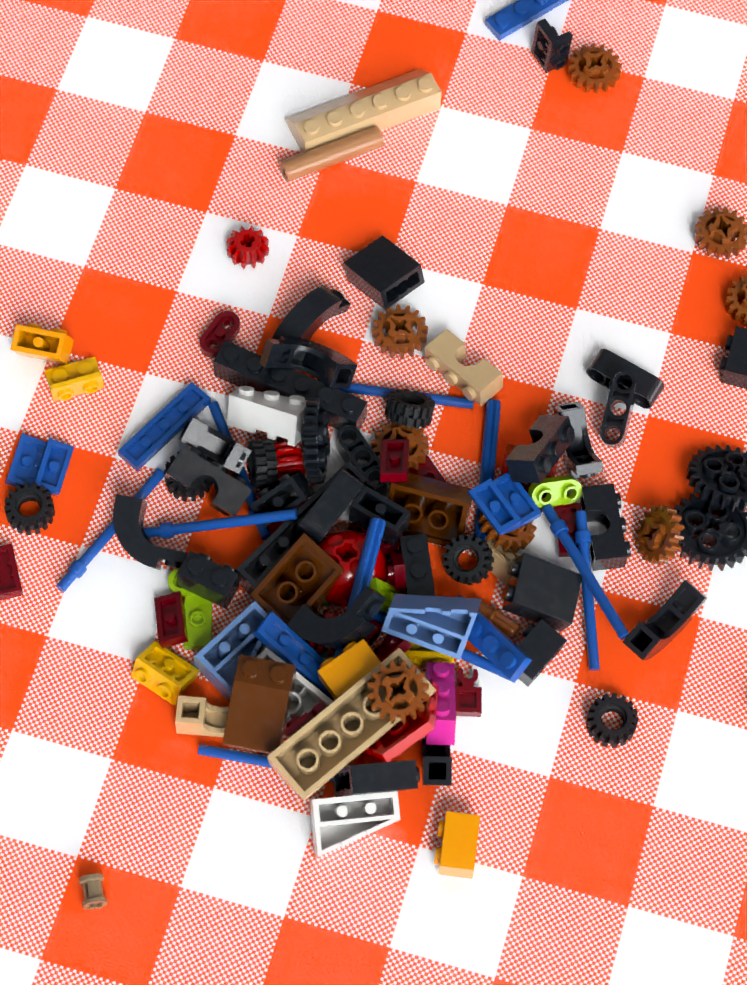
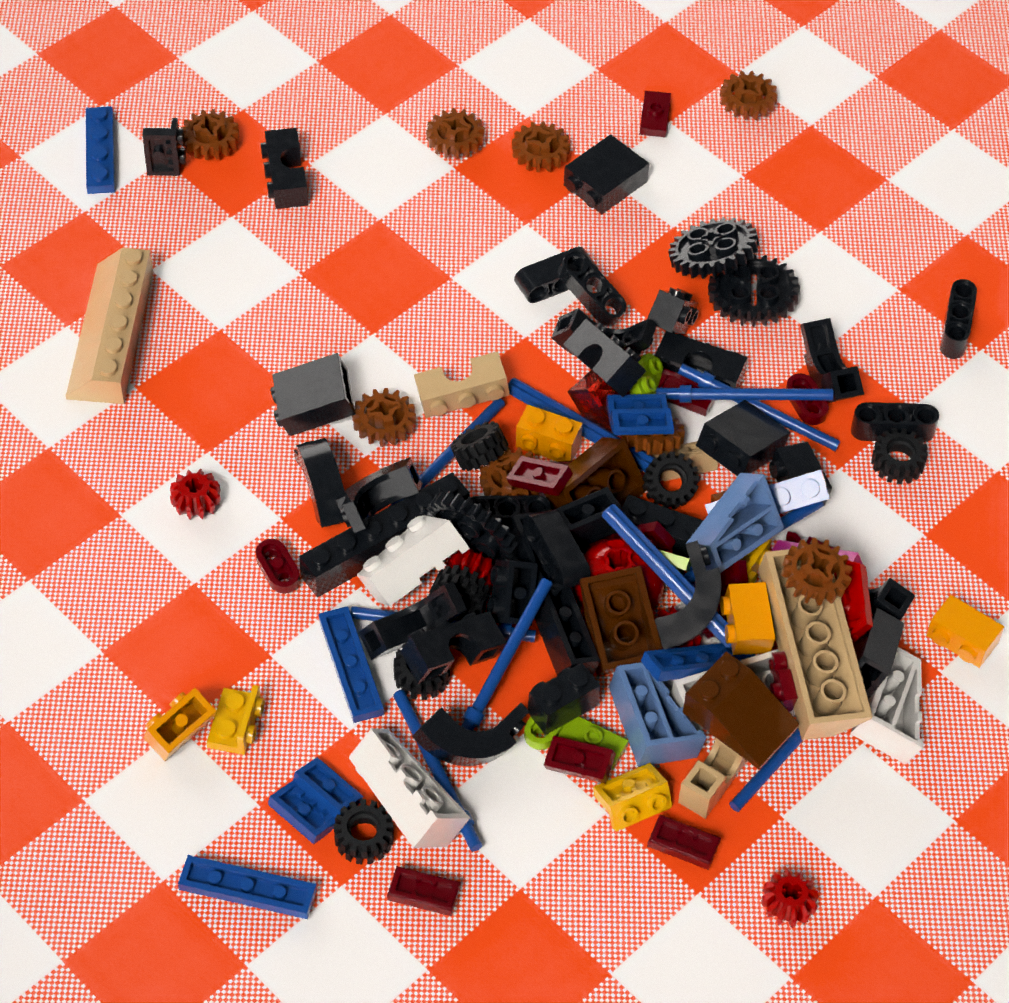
camera: 60 degrees left, 10 degrees down
(70, 518) = (407, 791): none -> white wedge
(93, 891) = (852, 982): dark tan bush -> none
(137, 833) = (789, 898): none -> red gear
(144, 727) = (684, 842): none -> dark red plate
(331, 153) = (140, 376): medium nougat piece -> none
(457, 453) = (548, 434): none -> light orange brick
(611, 123) = (287, 184): none -> black arch
(629, 606) = (805, 407): none -> dark red plate
(634, 478) = (674, 310): none -> black brick
(643, 688) = (875, 418): none -> black beam
(659, 534) = (729, 320): dark orange gear -> none

